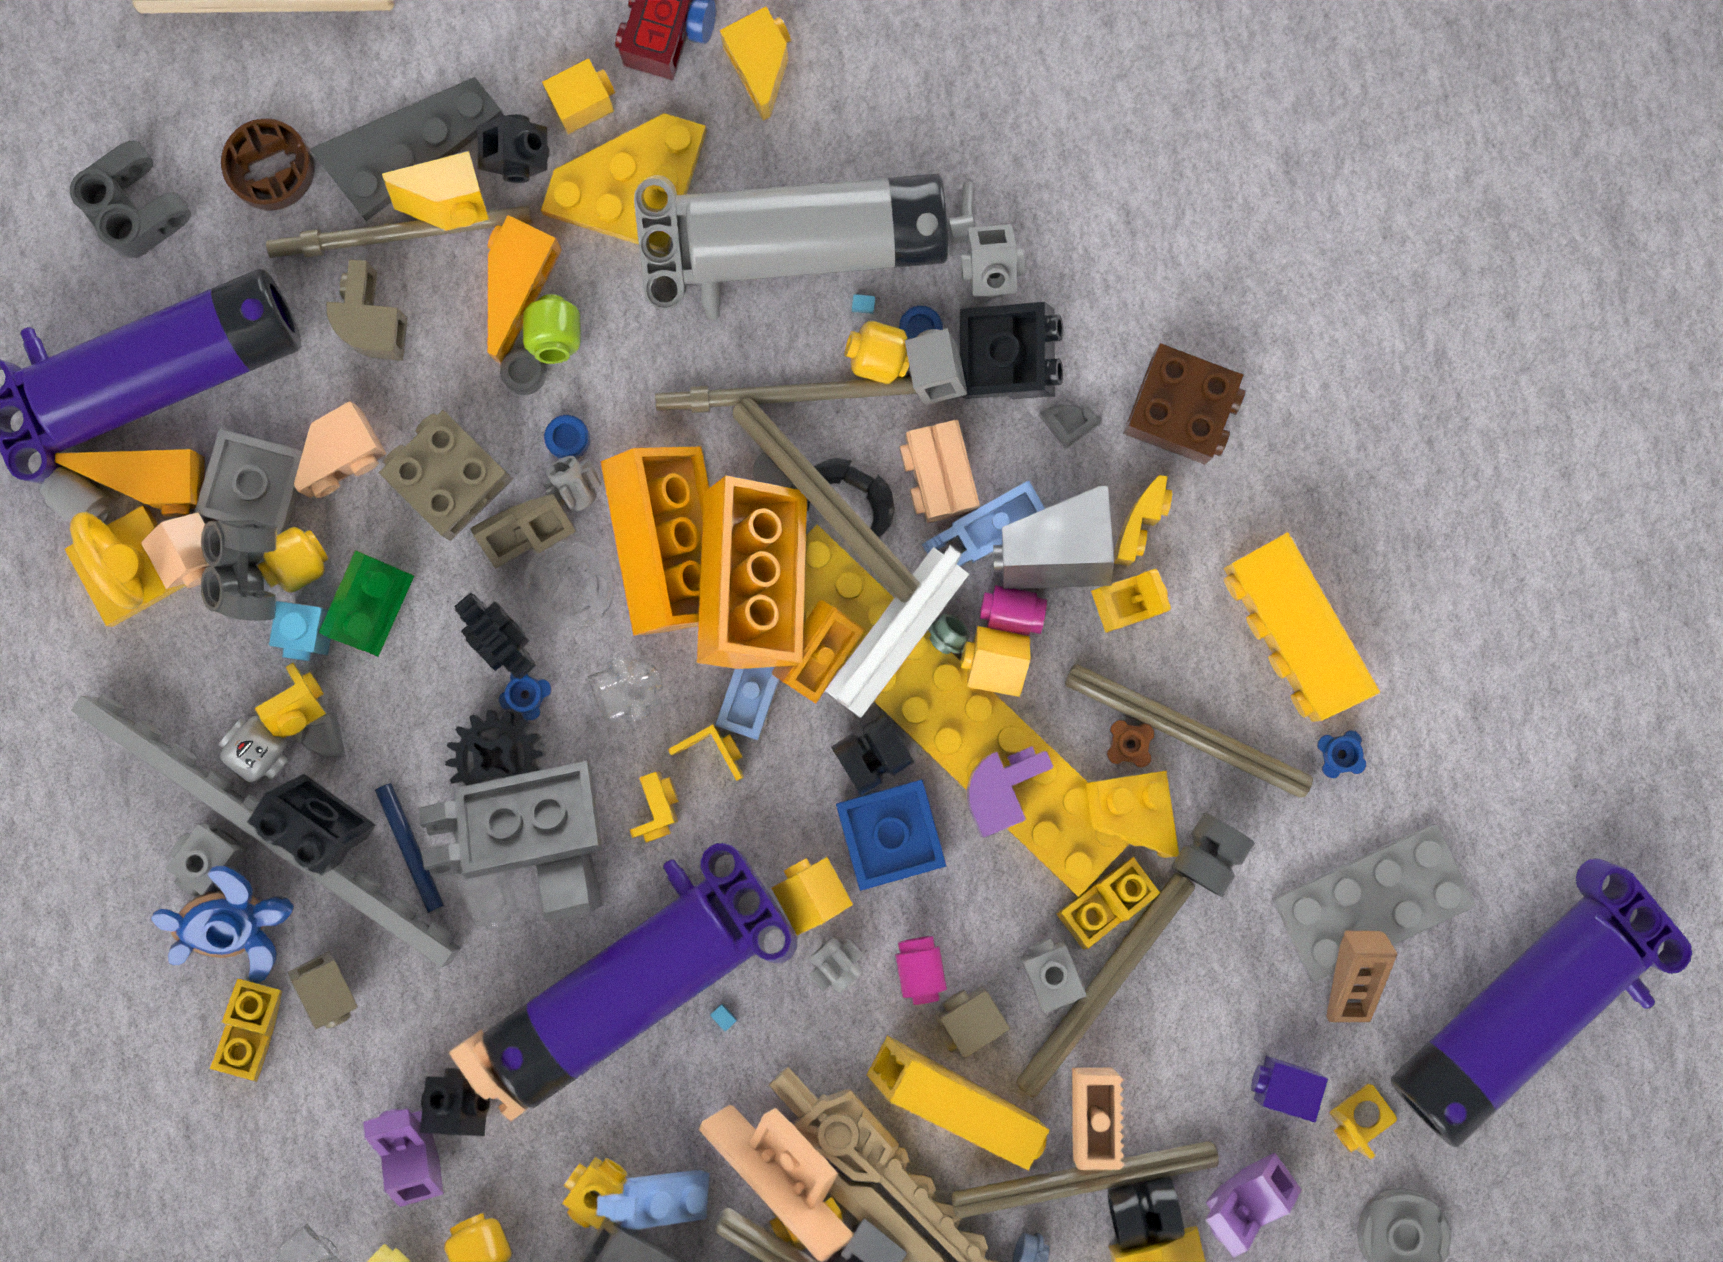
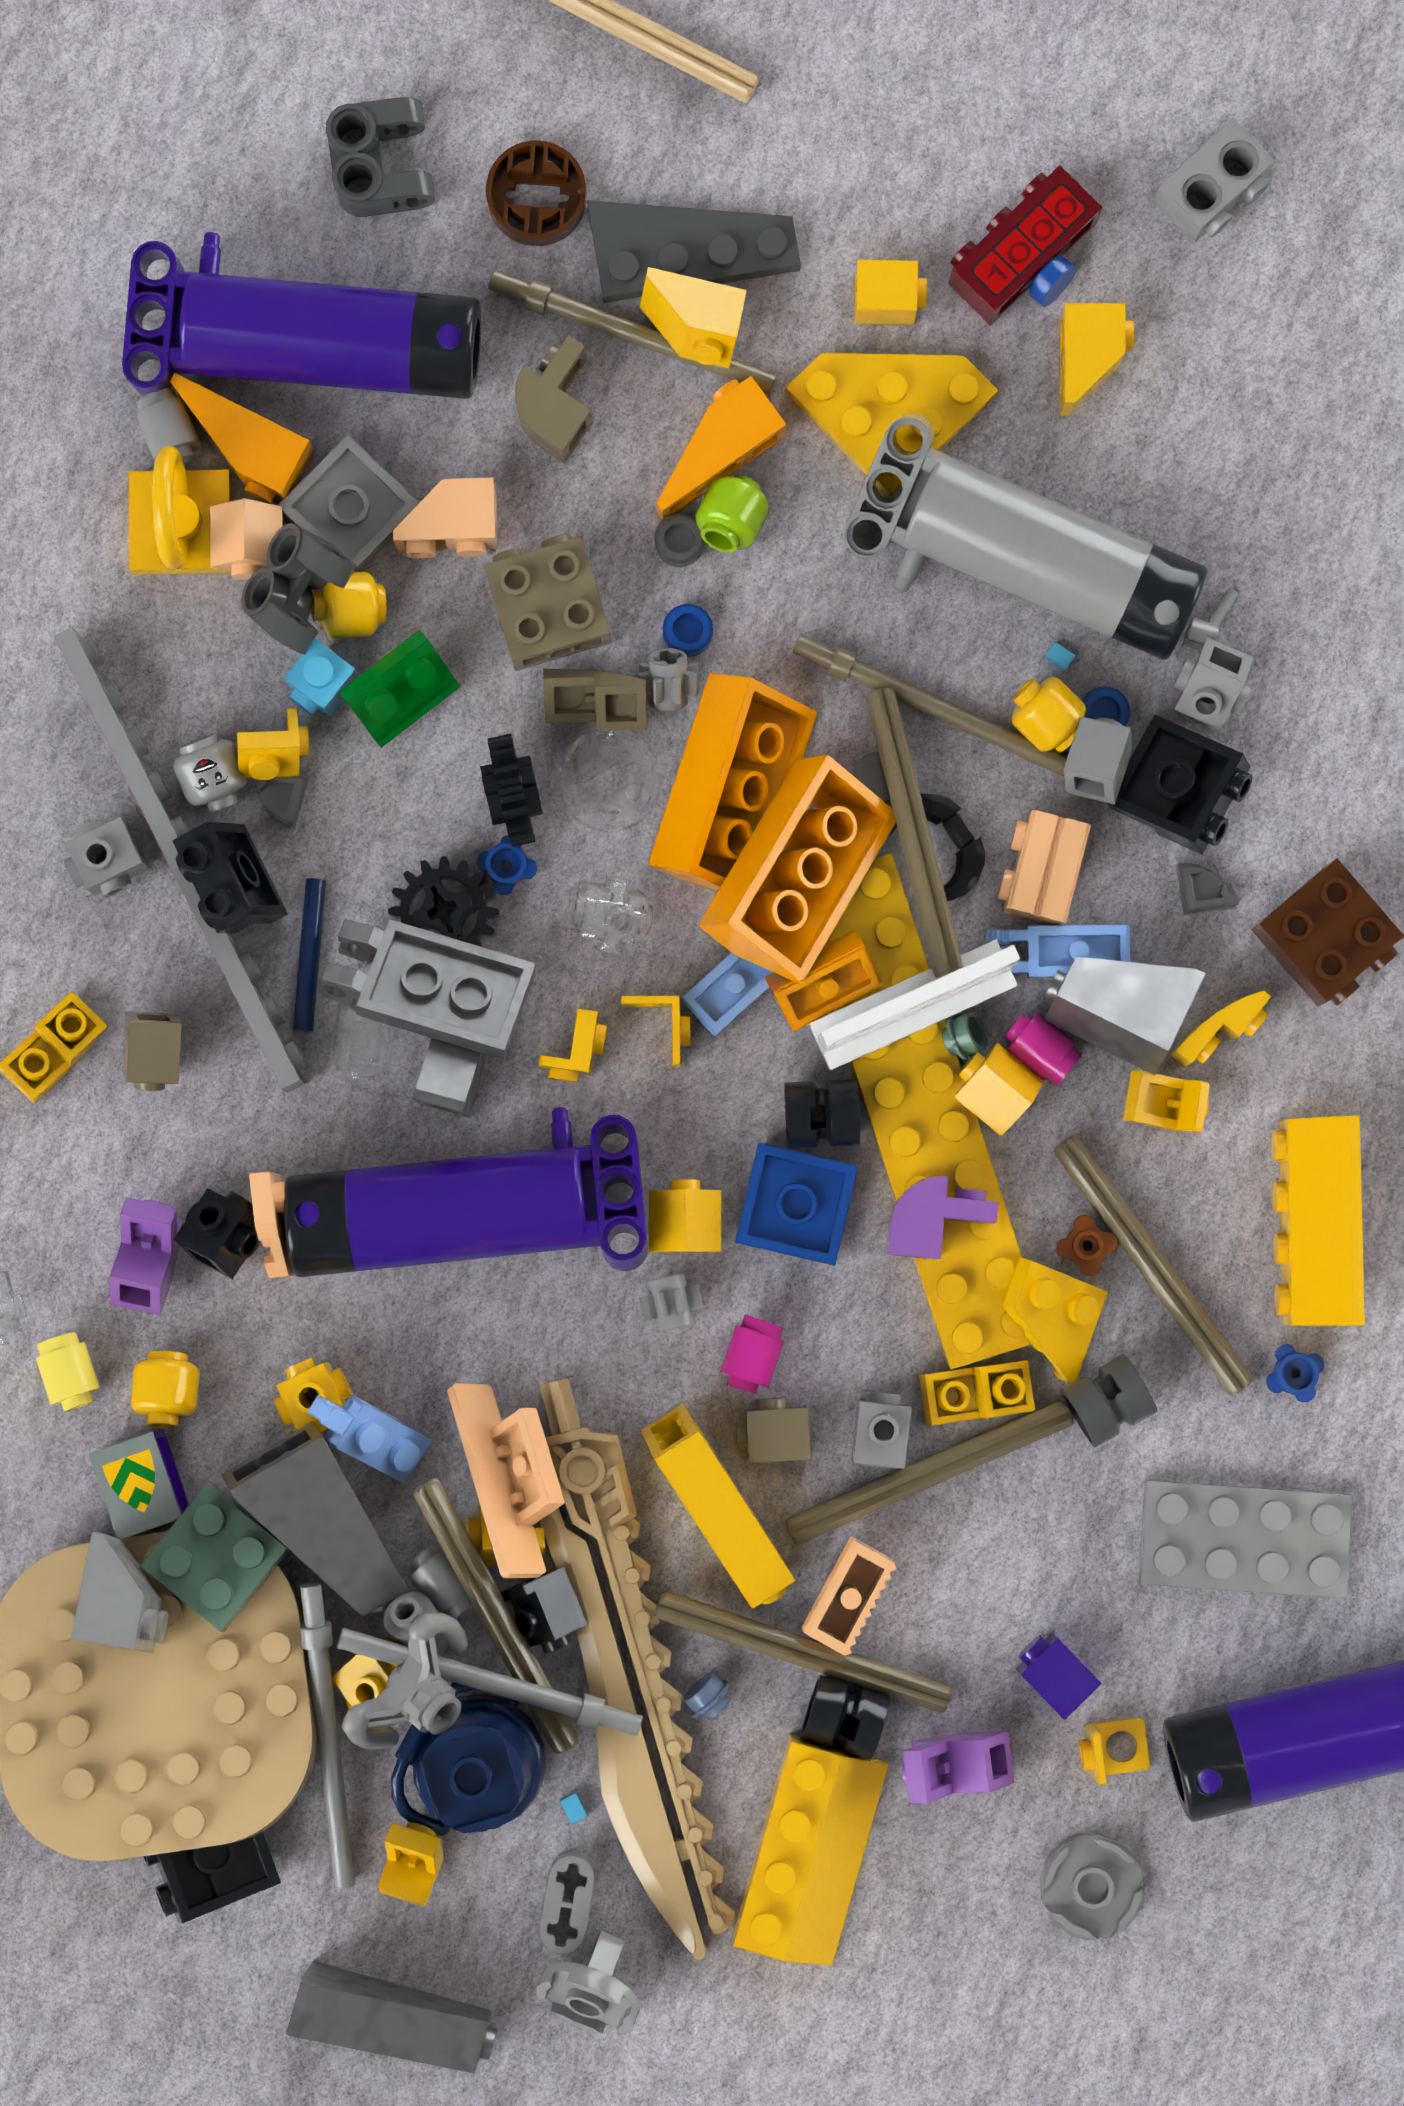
camera: 30 degrees right, 0 degrees up
(226, 923) = (91, 930): animal -> none
(512, 148) = (792, 310): black brick -> none
(723, 1017) = (529, 1295): medium azure piece -> none
(1360, 950) = (1199, 1574): medium nougat slope -> none

